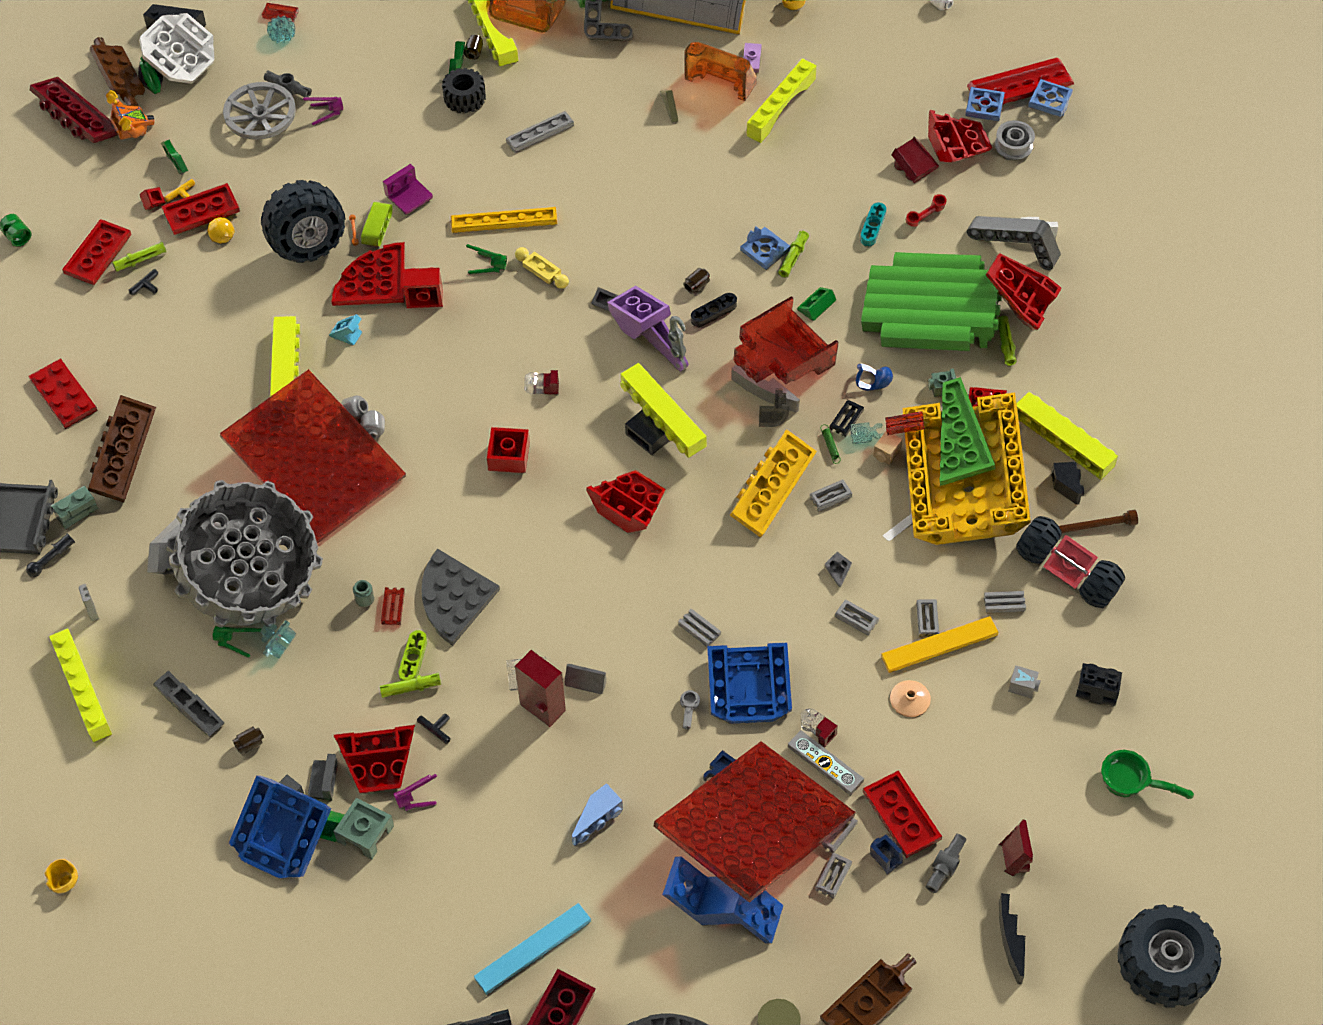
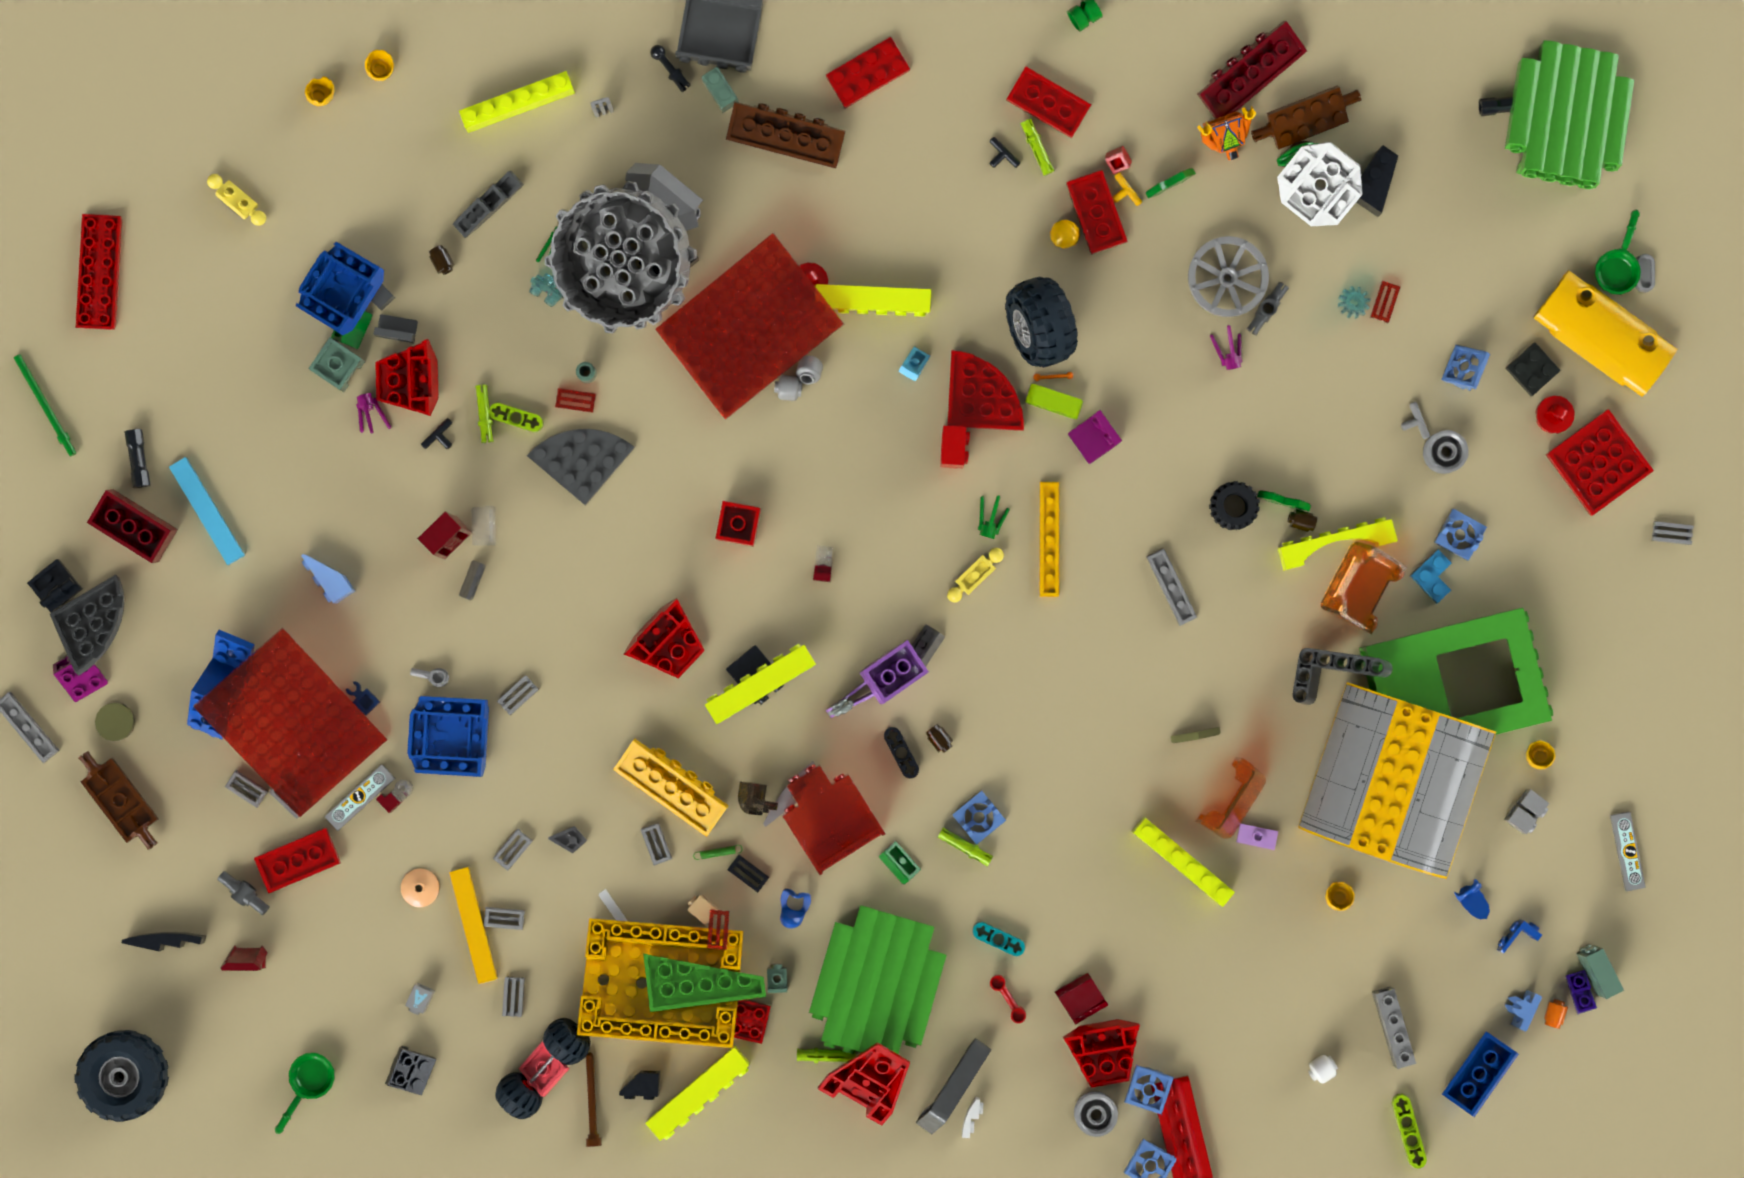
camera: 90 degrees right, 30 degrees up
(35, 820) = (379, 65): none -> yellow hair
(181, 953) = (236, 199): none -> light yellow plate
(863, 432) = (725, 886): clear light blue plate -> none
(886, 853) = (258, 838): dark blue window -> none

